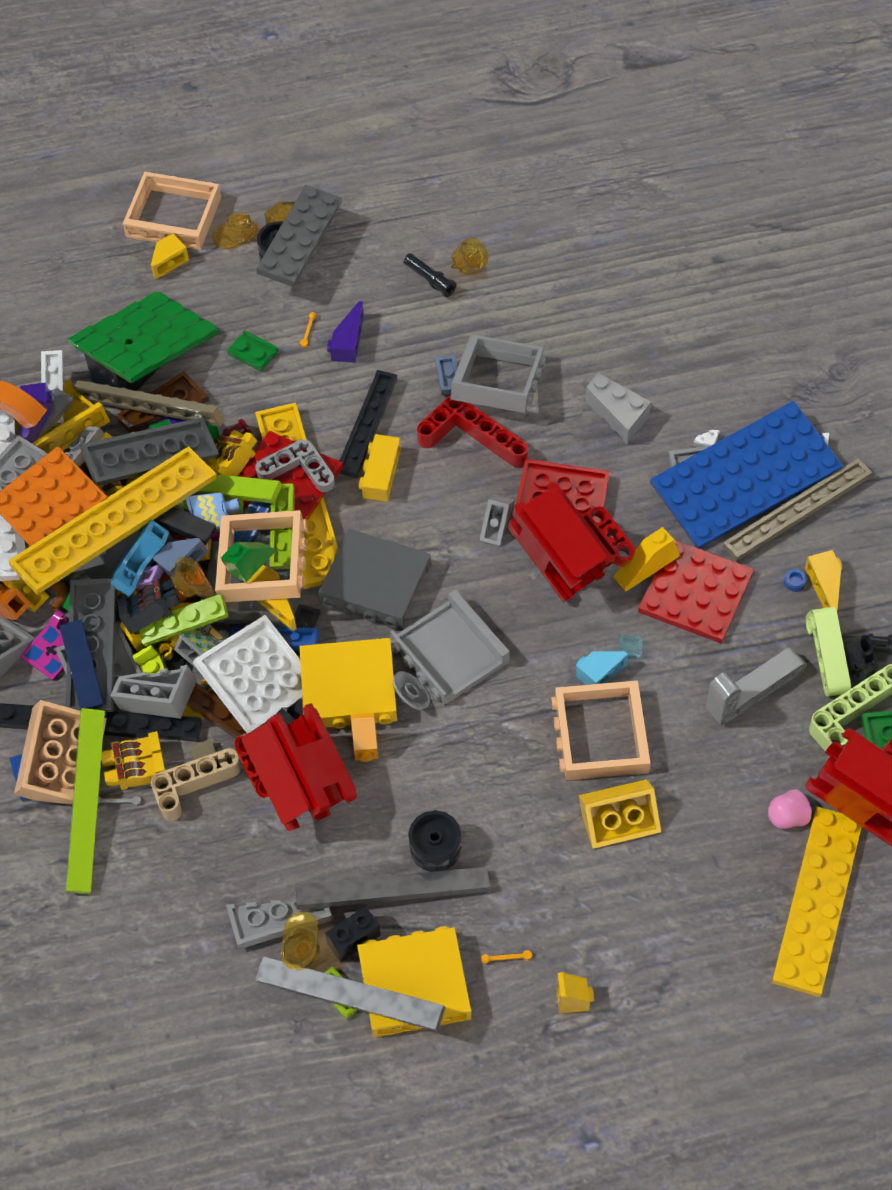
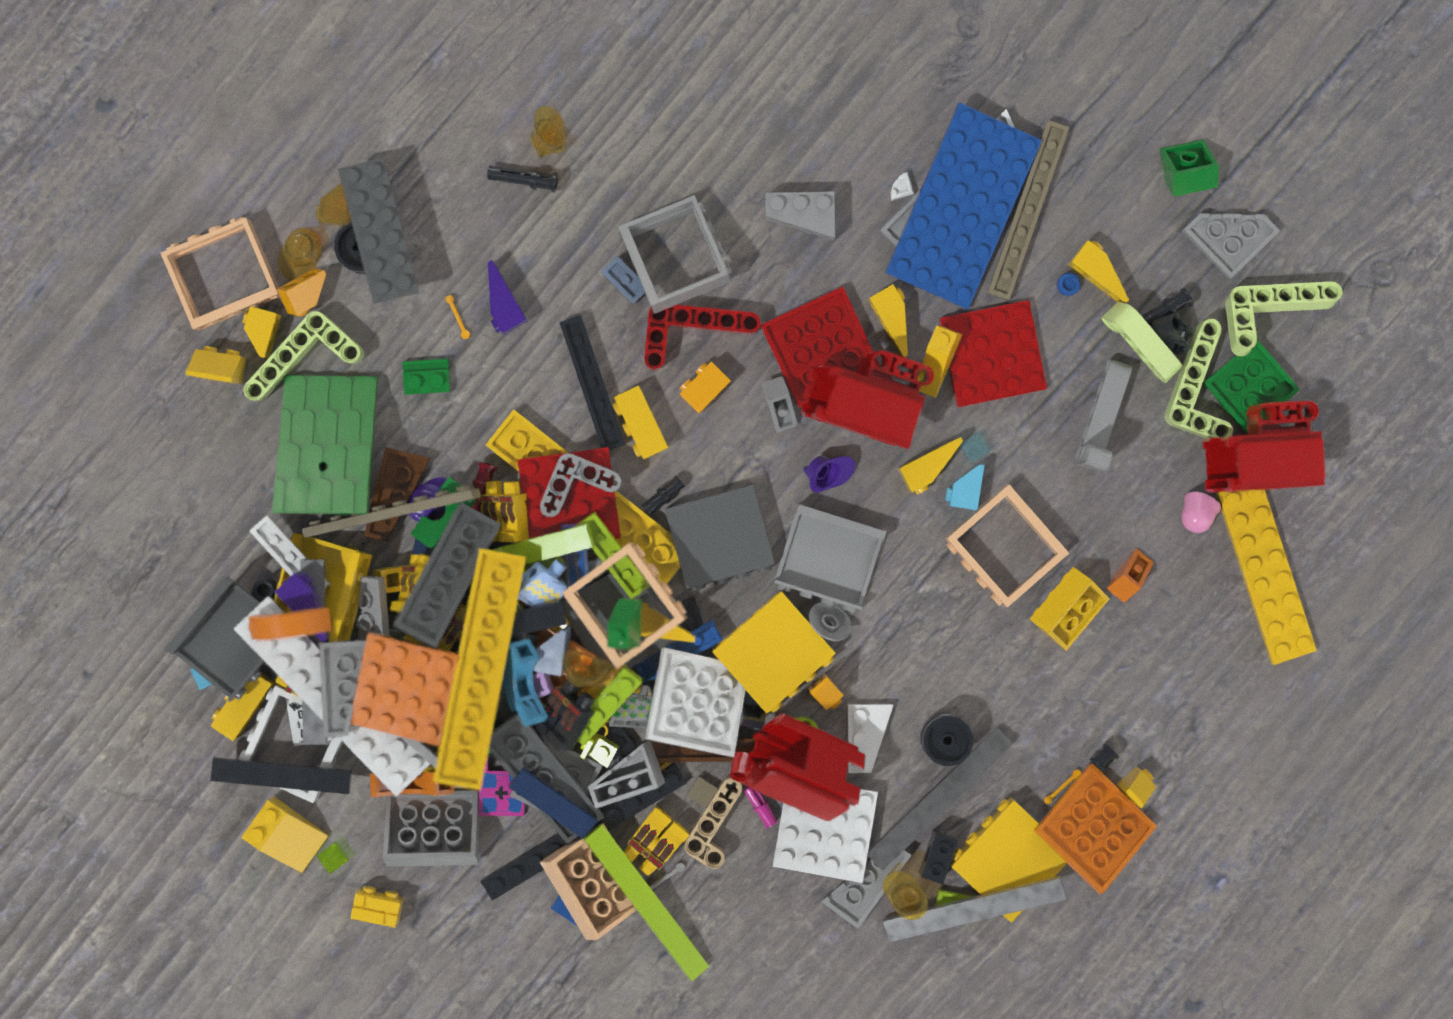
camera: 35 degrees left, 30 degrees up
(116, 256) = (217, 366): none -> yellow slope
(177, 279) = (298, 352): none -> yellowish green beam
(214, 247) = (302, 292): none -> light orange slope
(240, 796) = (761, 807): none -> dark pink axle
(273, 858) = (825, 847): none -> white plate
(360, 525) = (663, 495): none -> black pin
(374, 796) = (866, 731): none -> white wing
(449, 474) = (704, 387): none -> light orange brick
(498, 587) = (829, 472): none -> dark purple piece
(508, 1002) = (1095, 828): none -> orange plate
(561, 954) = (1104, 758): none -> black bush
(580, 632) = (926, 468): none -> yellow slope
(635, 509) = (891, 313): none -> yellow slope
(691, 820) = (1130, 576): none -> orange slope

